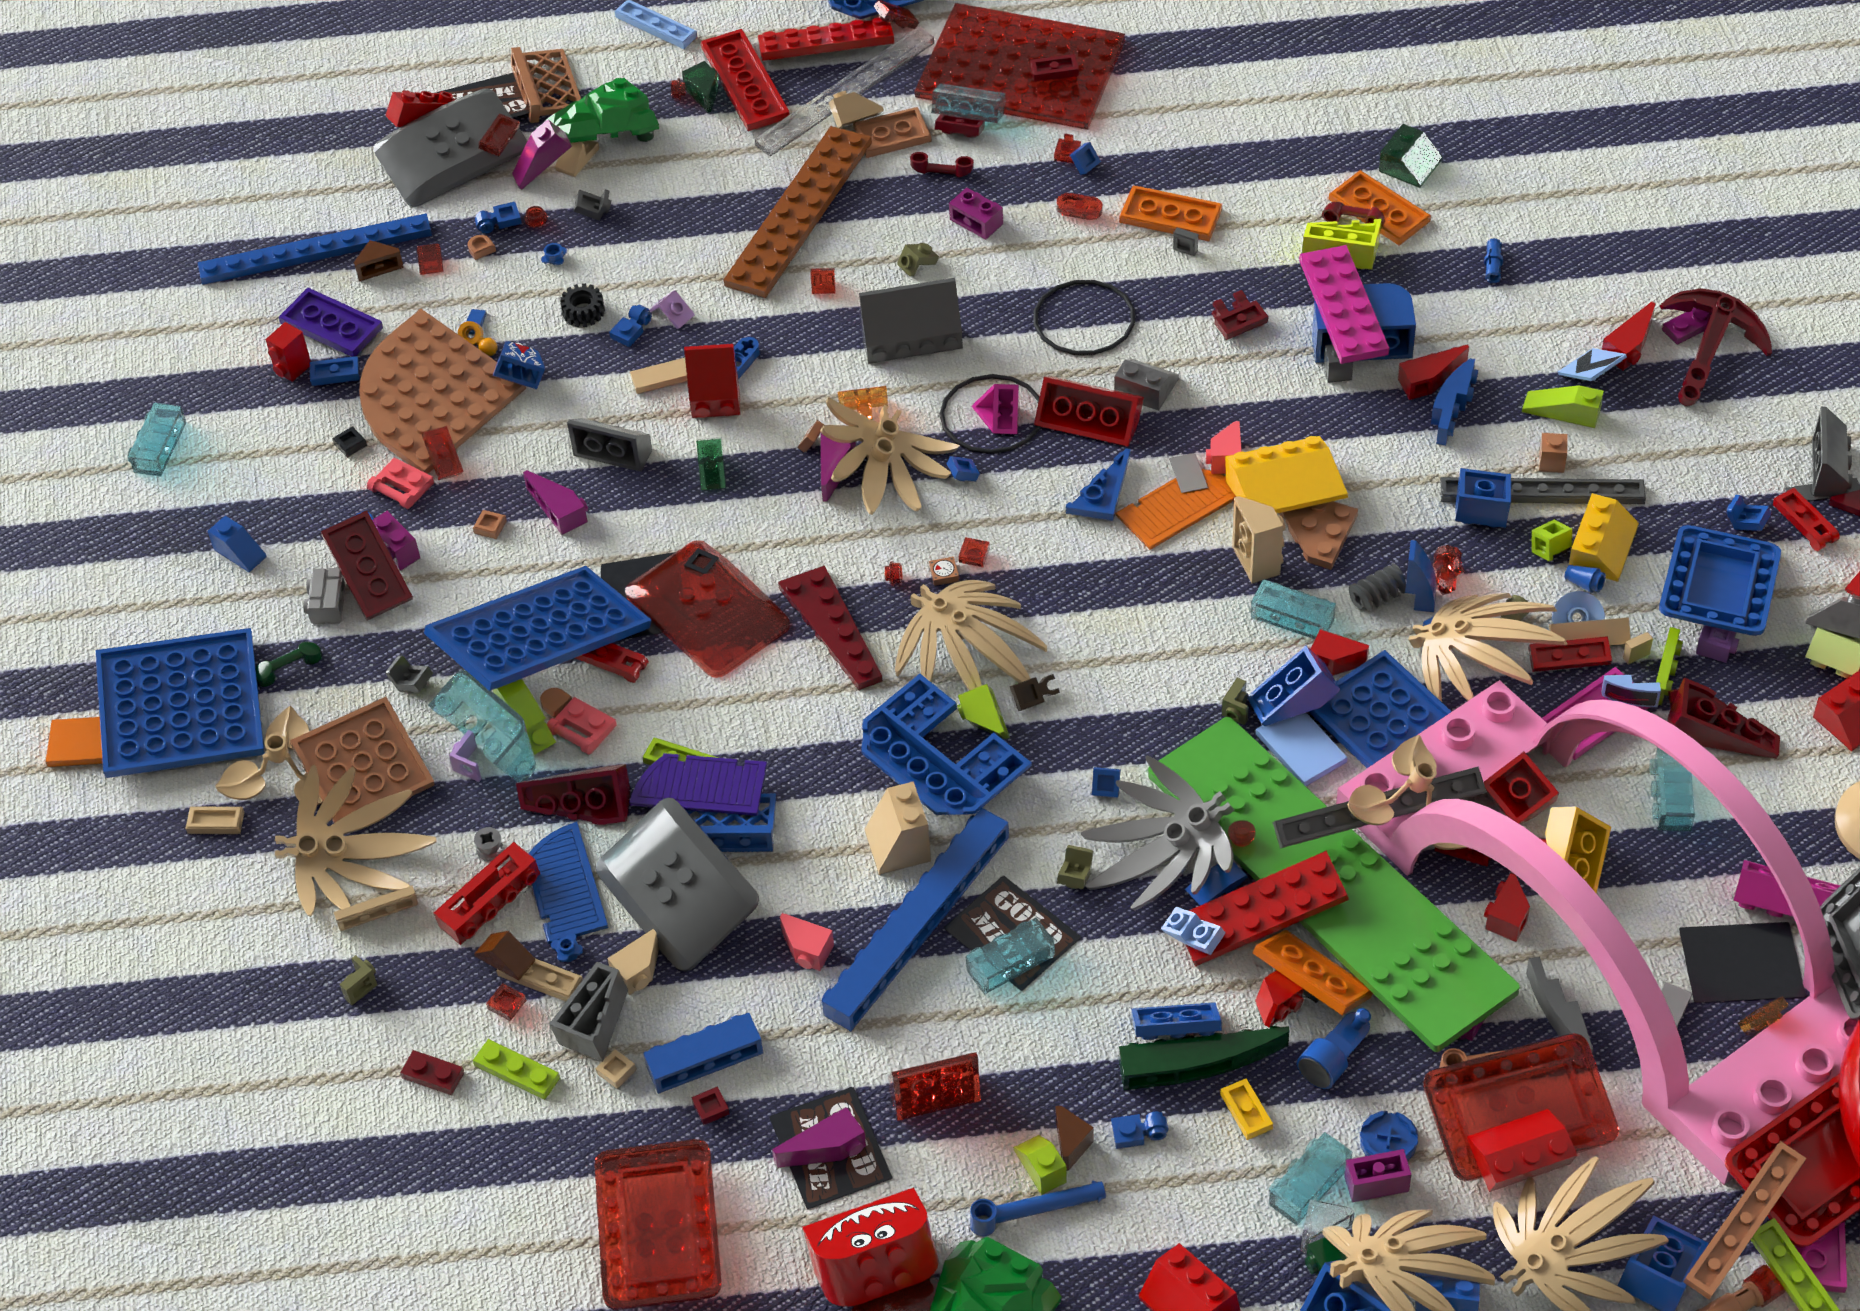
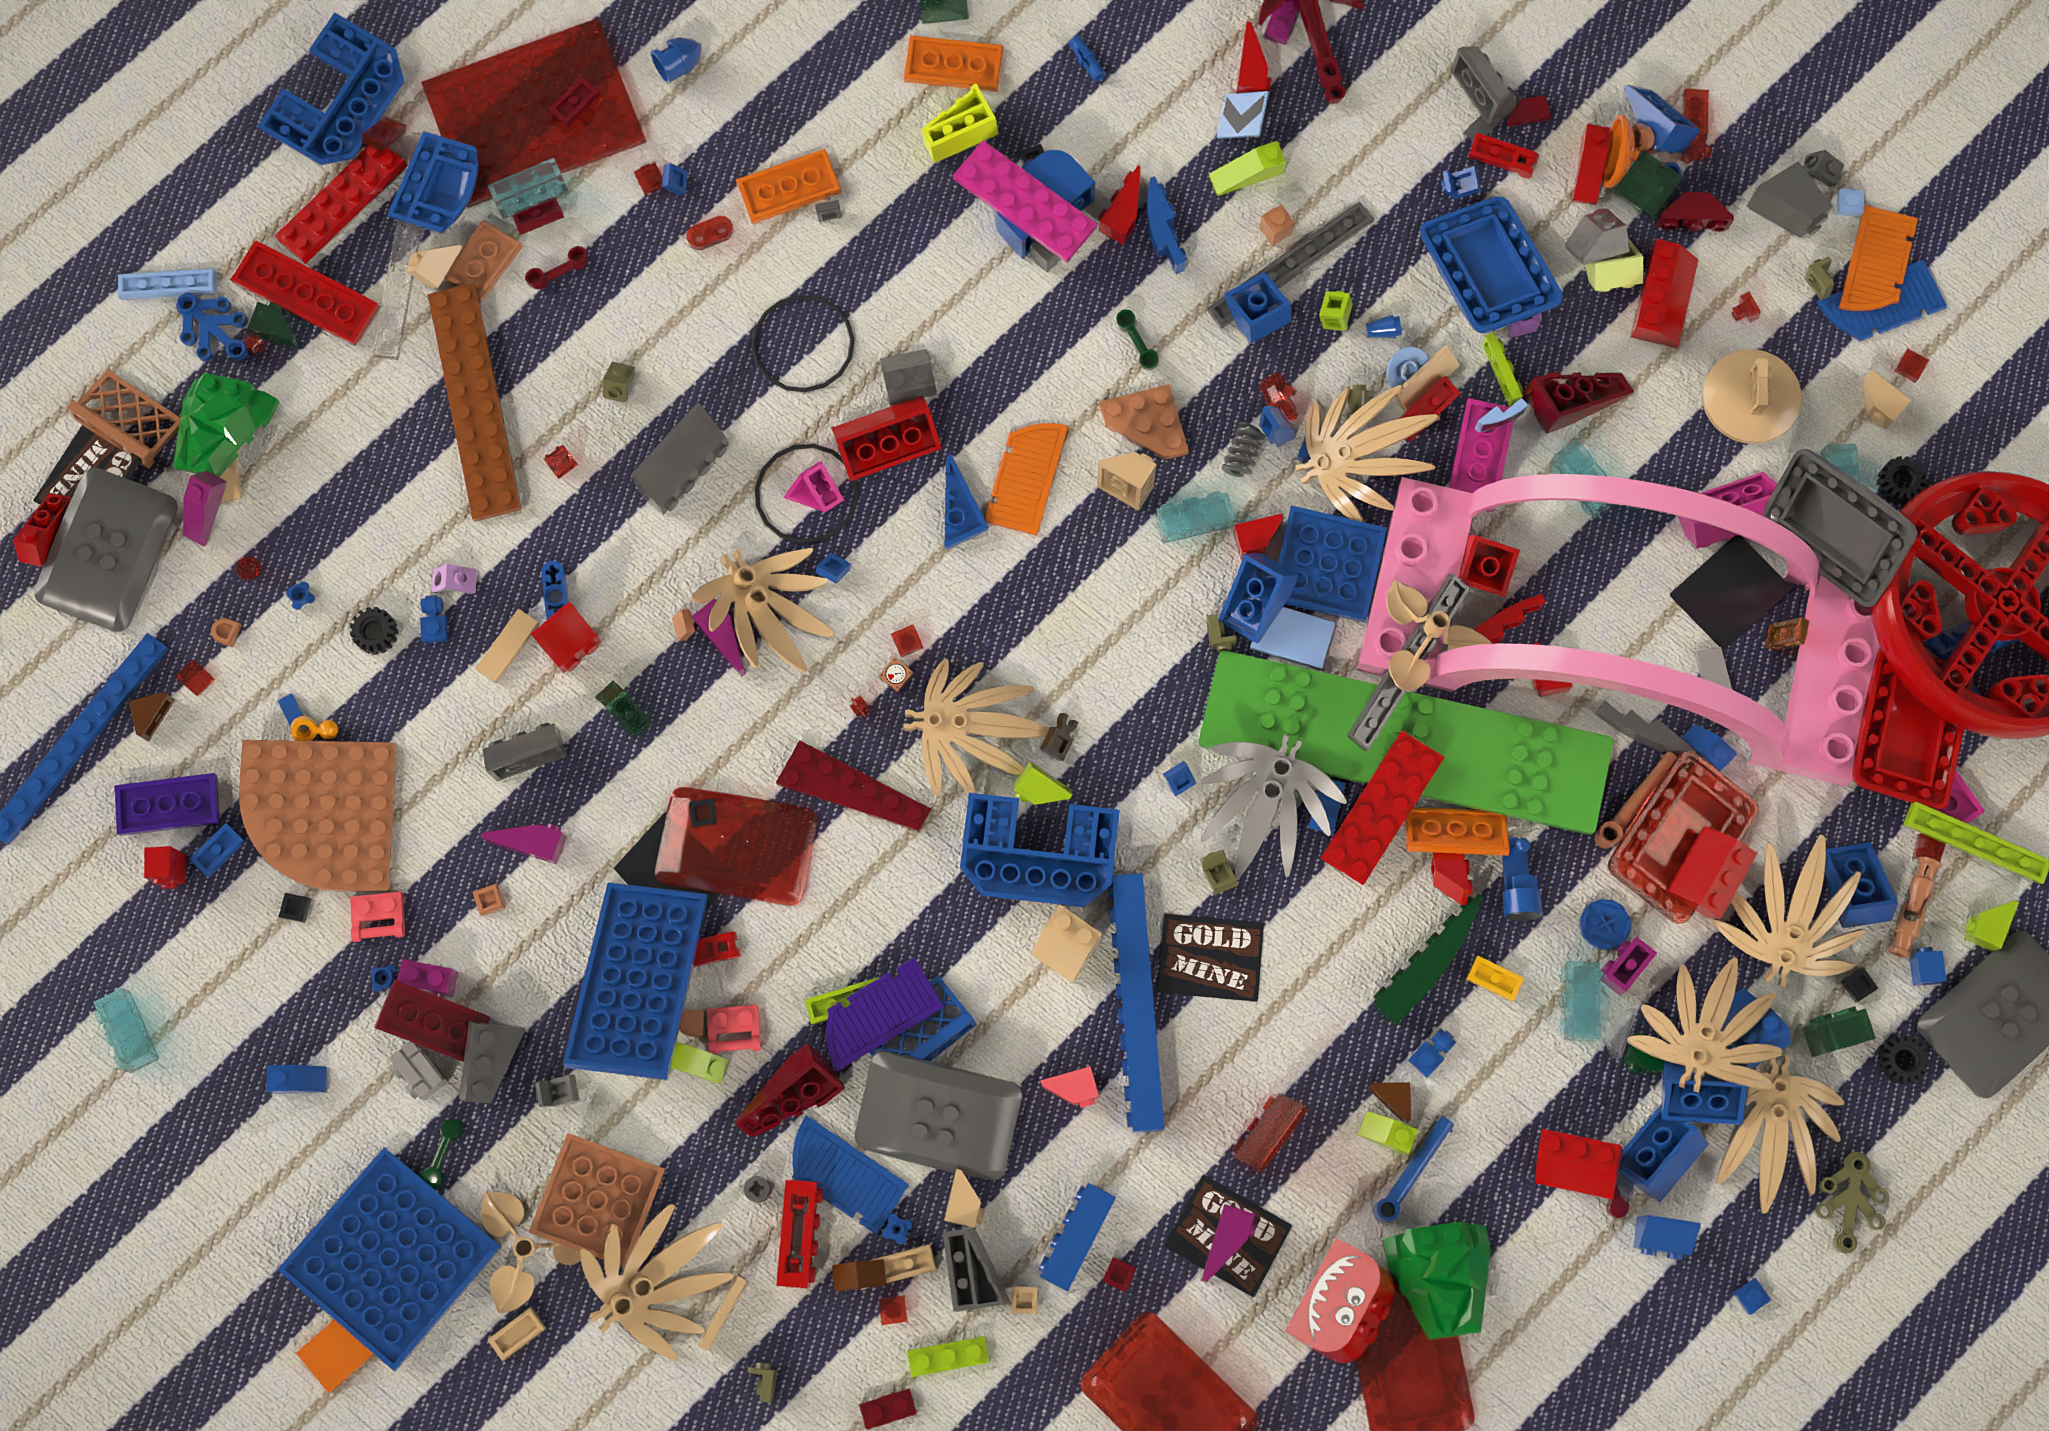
camera: 40 degrees left, 25 degrees up
(381, 615) = (486, 1059): none -> dark grey wedge
(442, 453) = (392, 866): clear red plate -> none
(459, 756) = (661, 1128): lavender bracket -> none
(499, 135) = (147, 512): clear red tile -> none
(503, 215) = (220, 586): blue plate -> none
(509, 743) = (713, 1100): clear light blue windscreen -> none
(520, 365) = (379, 733): blue torso -> none
(592, 205) = (289, 520): dark grey bracket -> none
(658, 43) = (208, 325): none -> blue plant
(864, 399) = (698, 561): clear orange tile -> none
(902, 60) = (436, 183): none -> blue slope
(976, 213) = (630, 300): magenta brick -> none
(1010, 955) = (1231, 982): clear light blue brick -> none
(1160, 85) = (676, 59): none -> blue helmet
(1176, 1020) = (1394, 947): blue plate -> none
(1188, 472) = (1010, 441): light grey sticker -> none
(1193, 931) = (1349, 864): light blue slope -> none
(1223, 444) = (1028, 402): coral slope -> none
(1241, 319) = (935, 258): dark red plate -> none
(1241, 833) = (1320, 753): clear red plate -> none
(1286, 475) = (1098, 399): yellow slope -> none
(1334, 211) = (923, 94): dark red bar -> none
(1362, 451) = (1127, 323): none -> dark green bar
(1579, 841) = (1564, 590): yellow slope -> none
(1604, 537) = (1371, 282): yellow slope -> none
(1611, 1064) = (1709, 746): none -> blue slope
(1637, 648) = (1470, 367): tan tile -> none
(1744, 1220) = (1902, 821): nougat plate -> none

